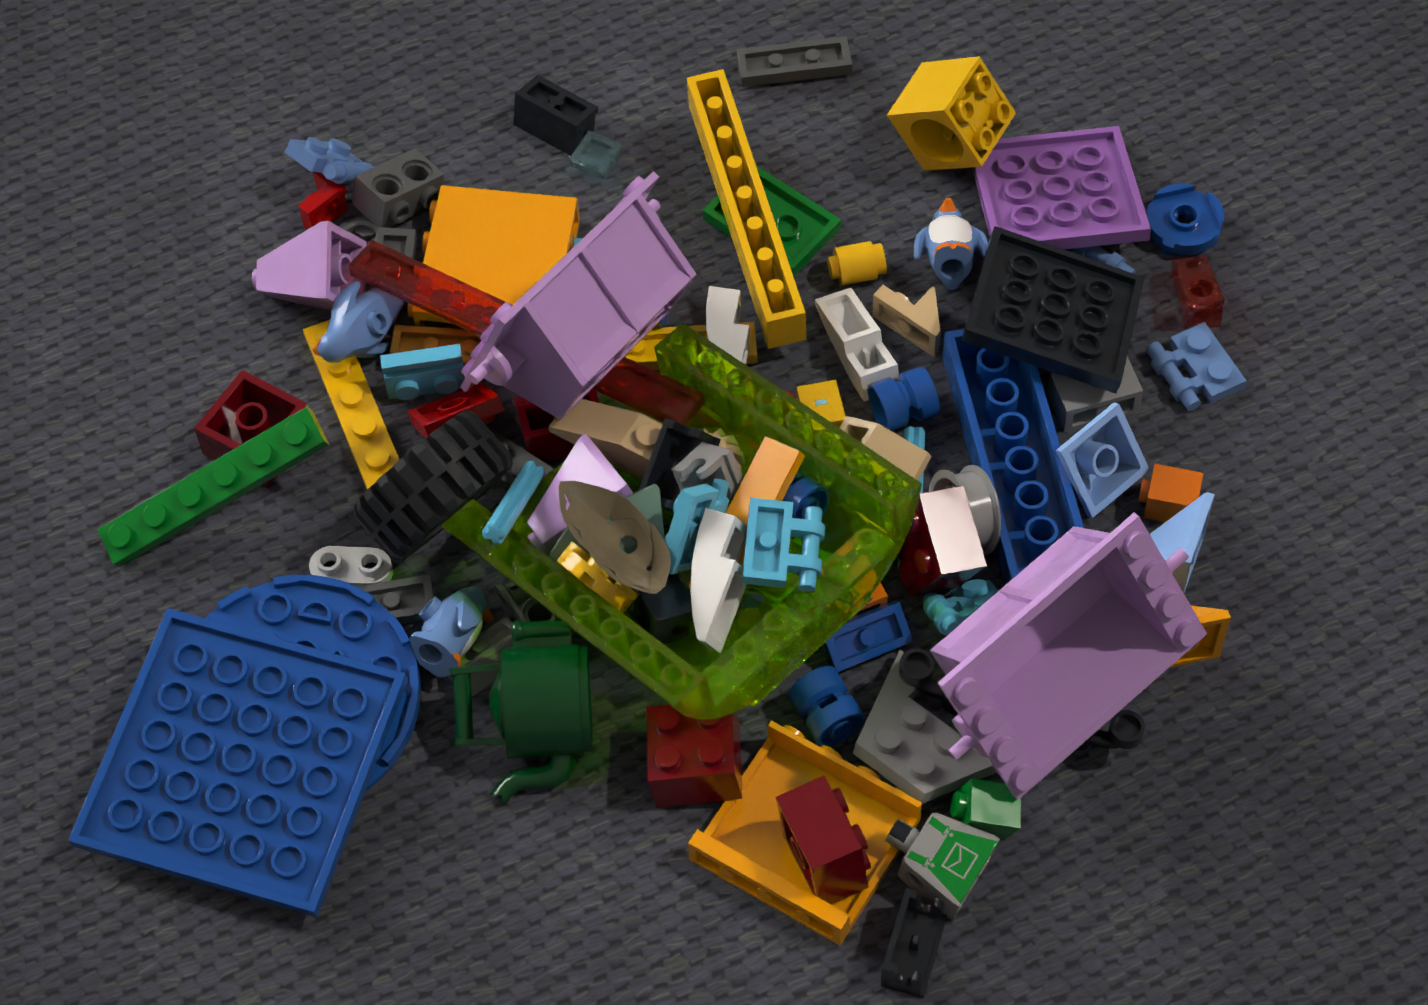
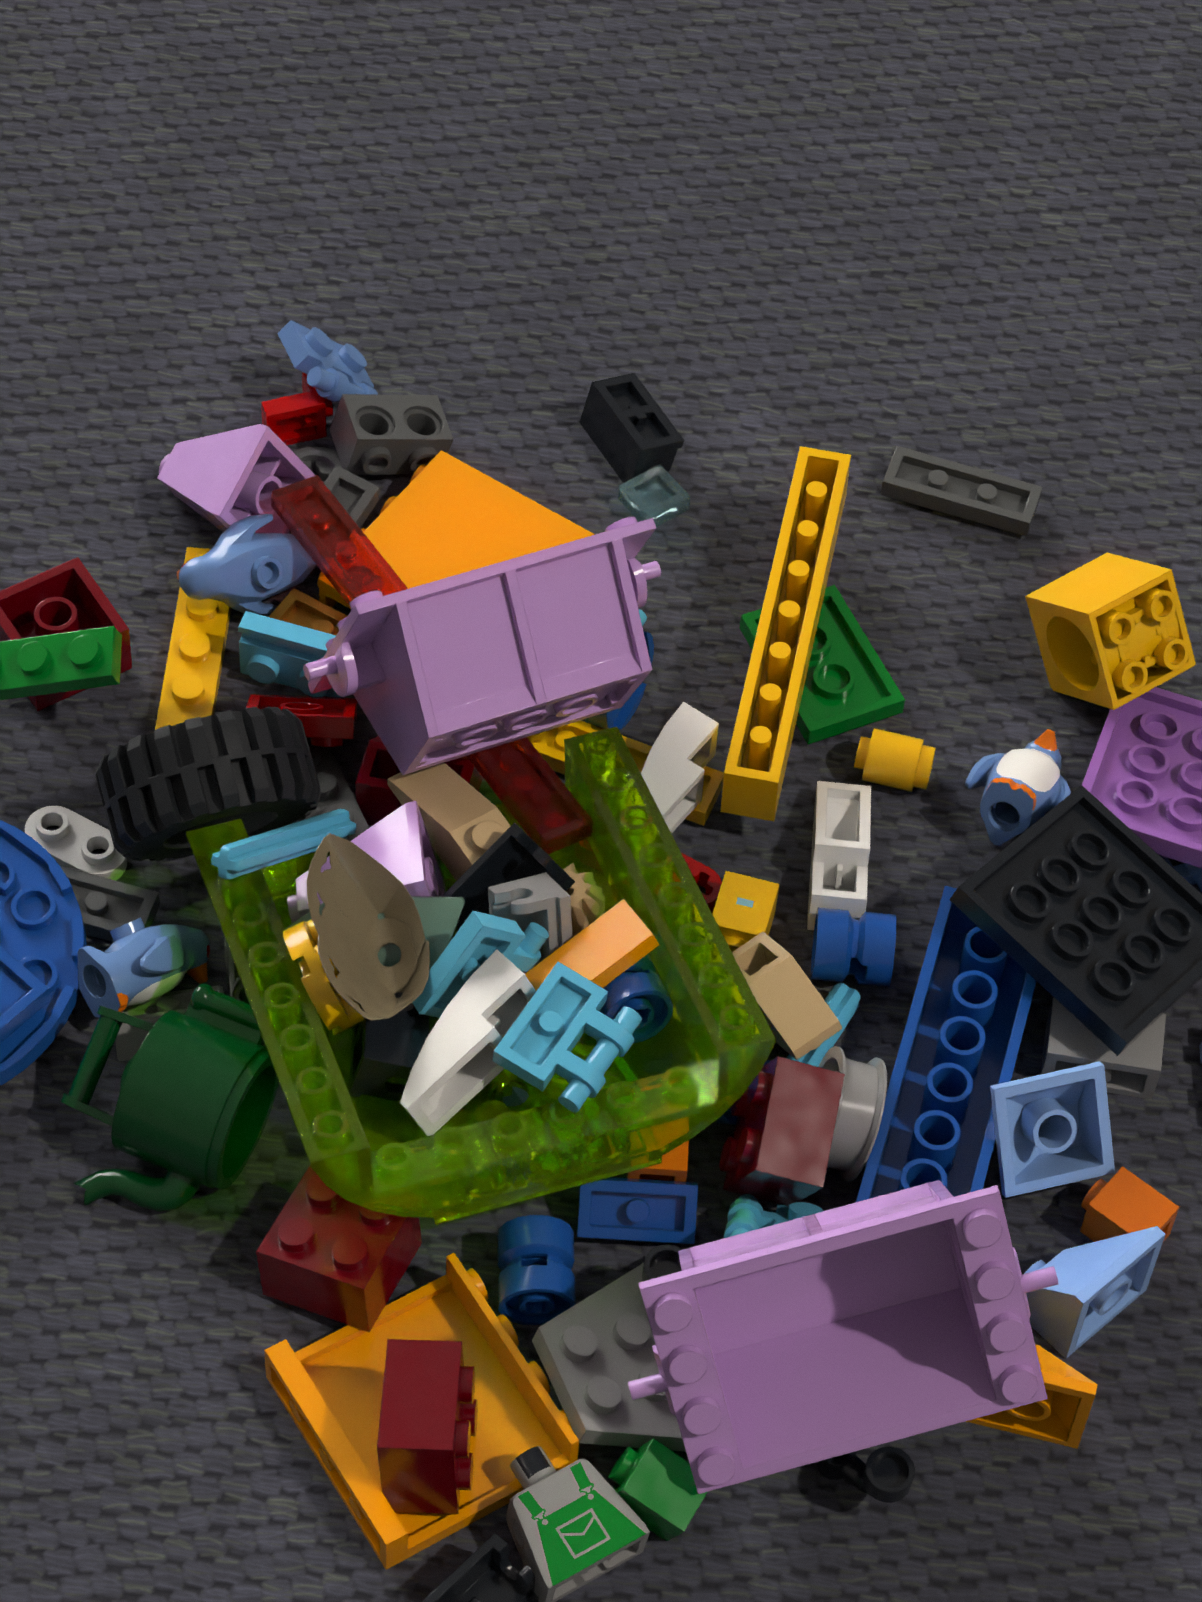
camera: 20 degrees right, 5 degrees down
(914, 322) = (925, 860): tan slope -> none

